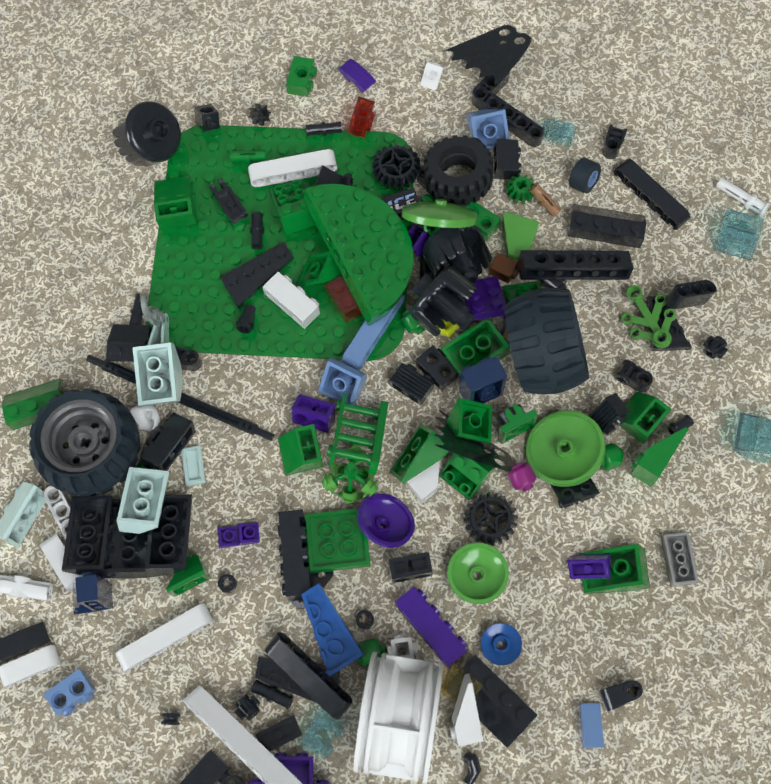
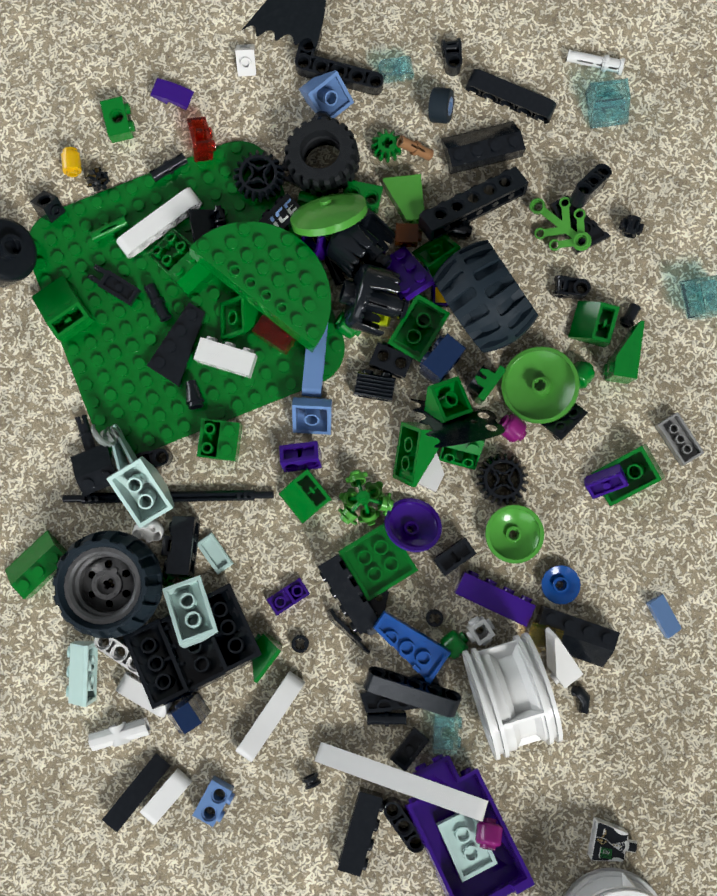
camera: 25 degrees left, 15 degrees up
(245, 93) = (71, 162): none -> yellow brick
(247, 707) = (372, 740): black gear -> none
(249, 367) = (219, 440): none -> green slope
(270, 575) = (353, 636): none -> black piece
(373, 458) = (365, 445): green fence -> none
(506, 159) = (359, 120): black brick -> none
(610, 413) = (566, 335): black brick -> none
(617, 695) = (676, 581): black piece -> none

